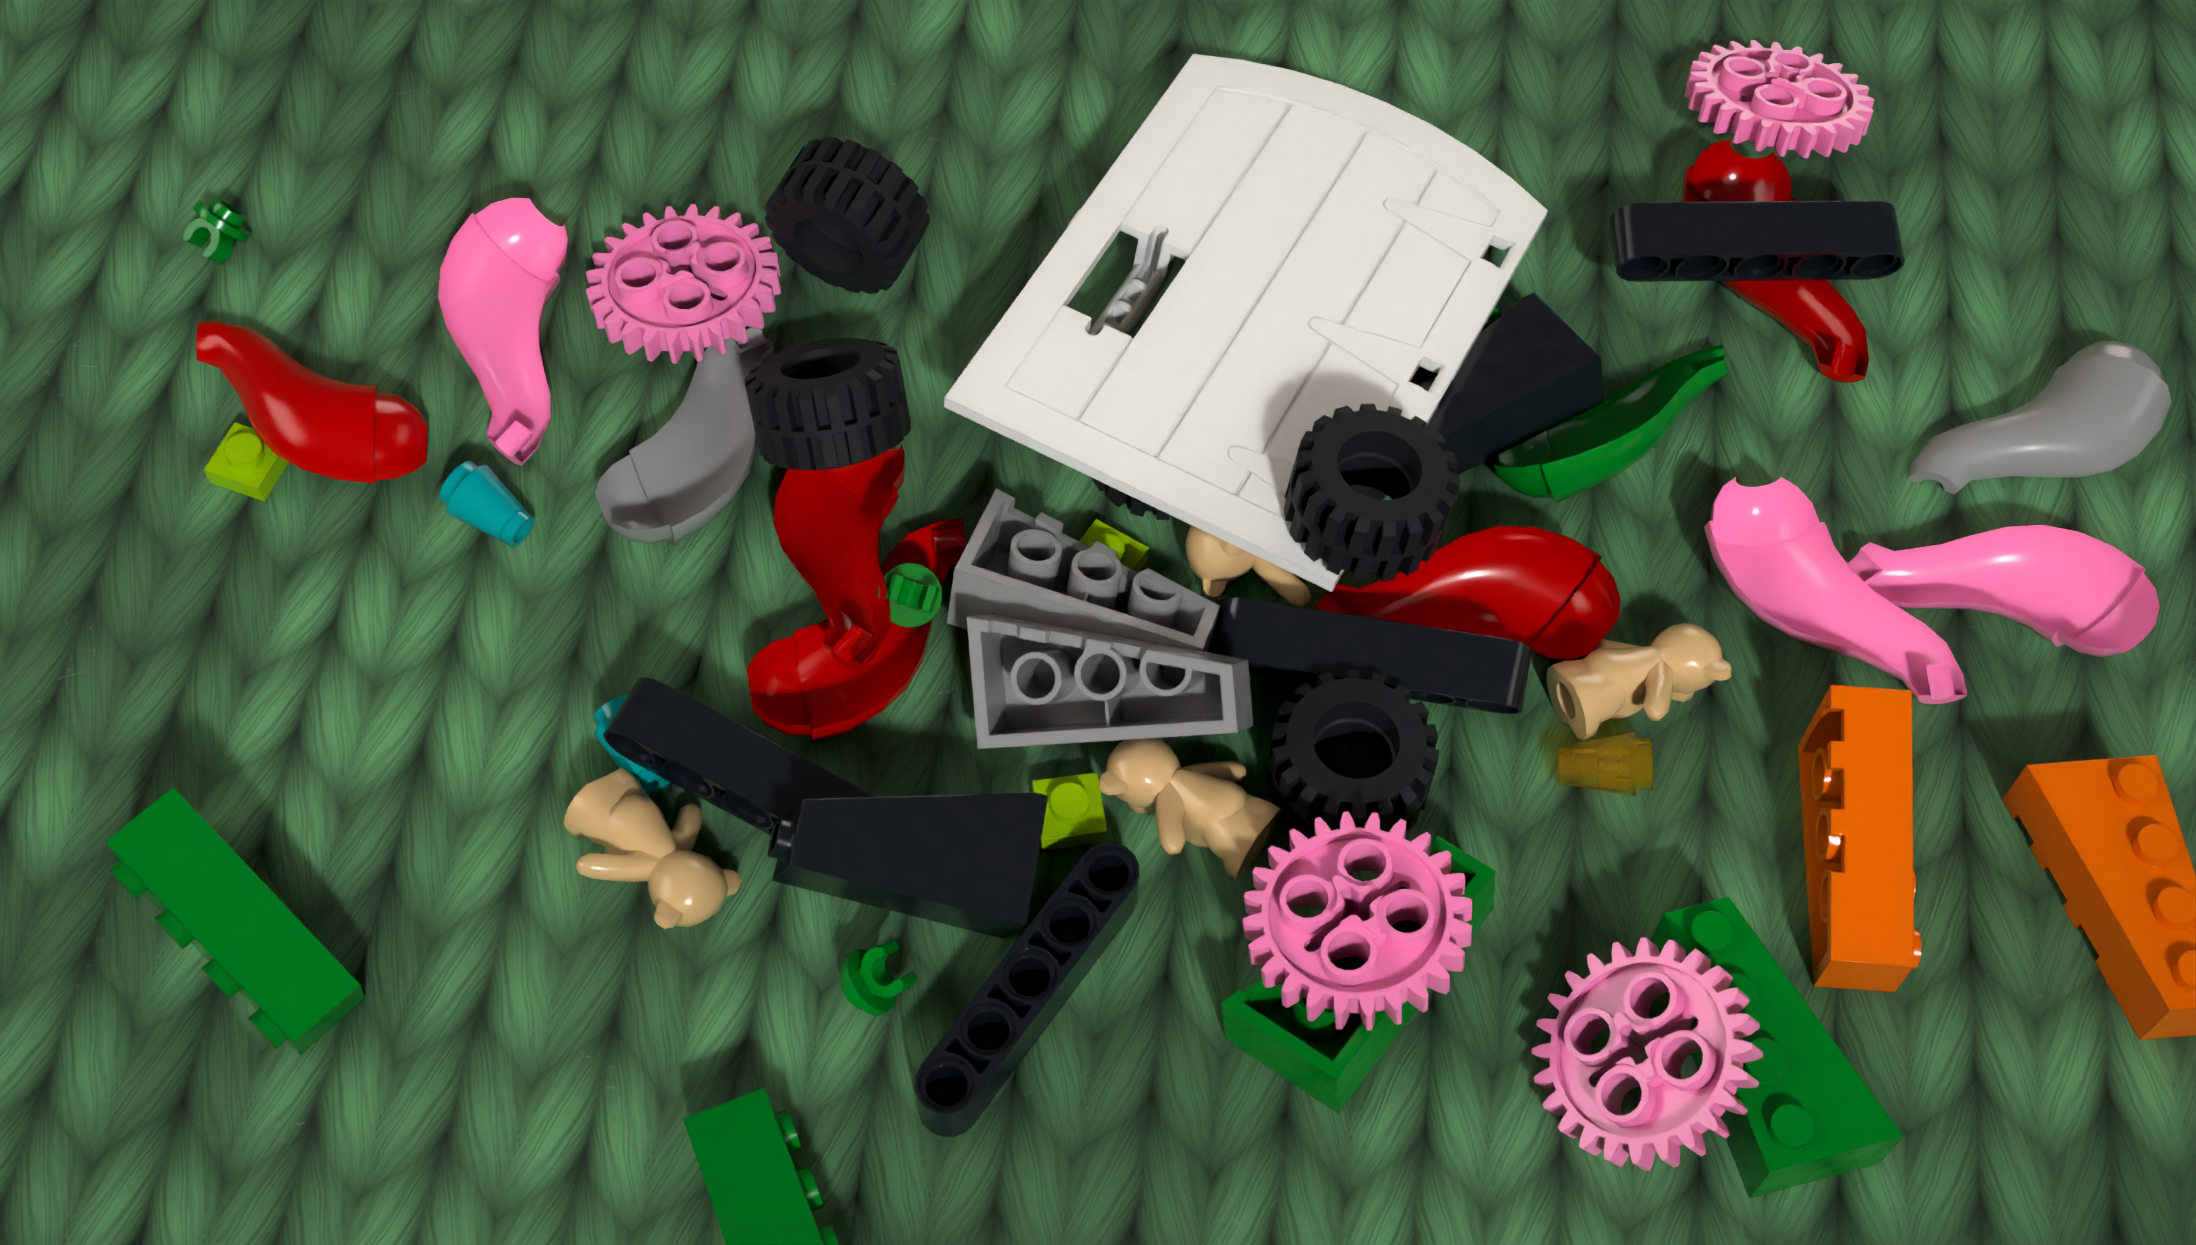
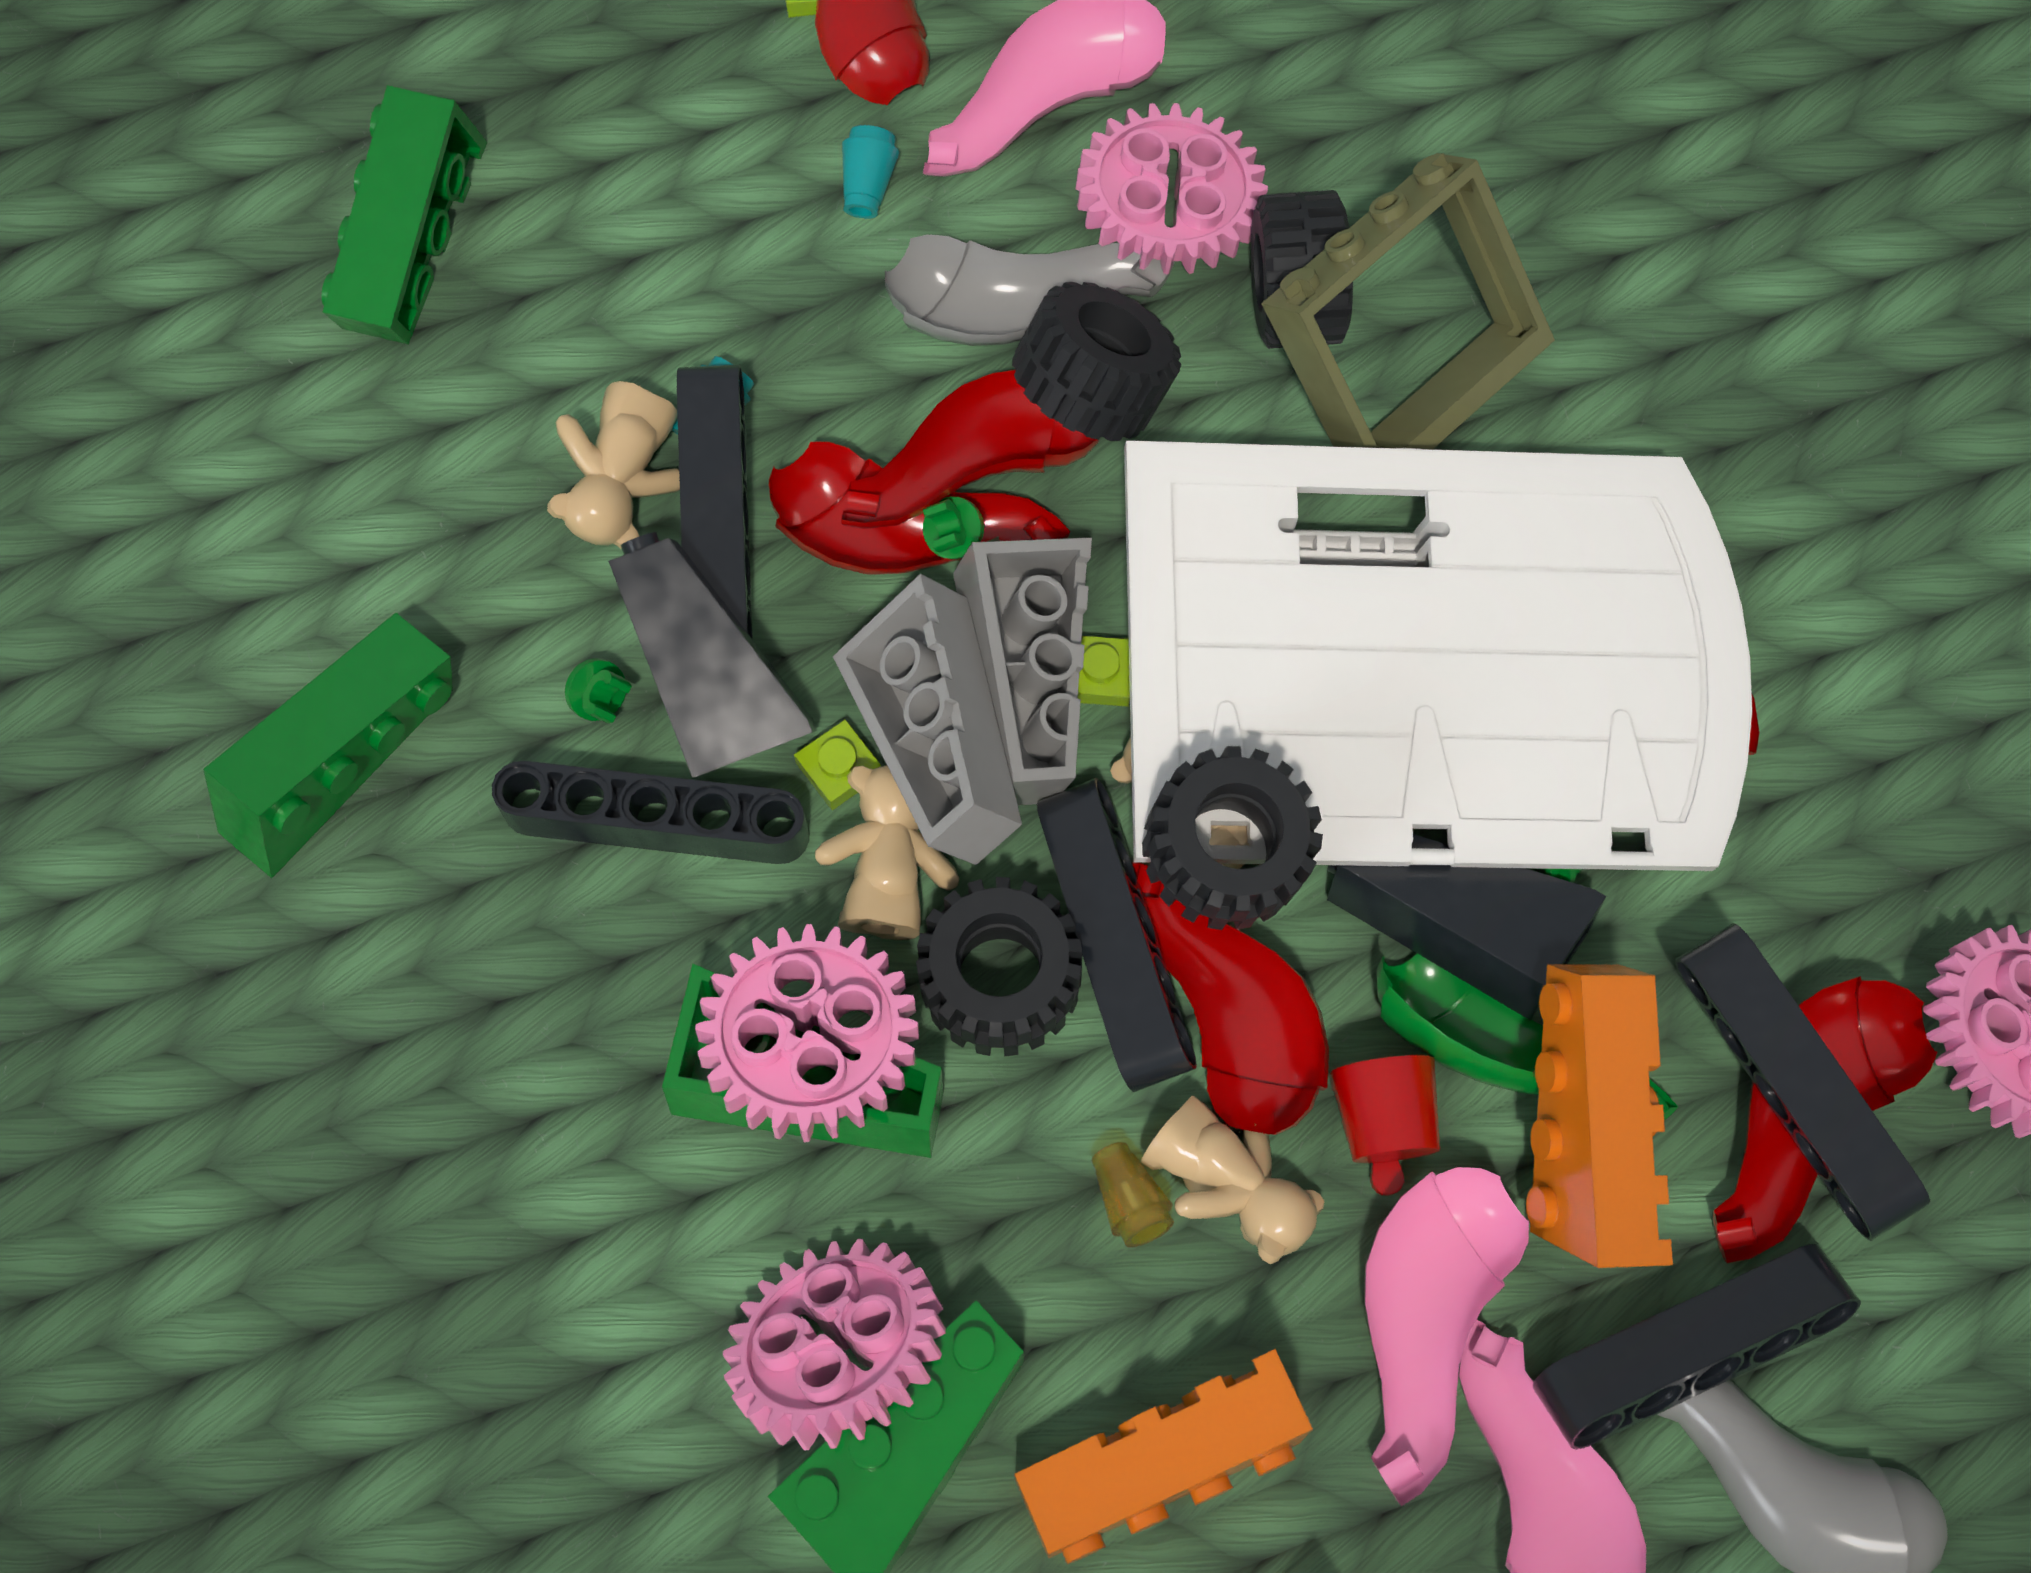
camera: 65 degrees right, 10 degrees up
(890, 73) = (1475, 373): none -> olive window
(1642, 530) = (1388, 1114): none -> red hat
(1732, 378) = (1598, 1118): none -> orange wedge
(1932, 425) = (1695, 1346): none -> black beam

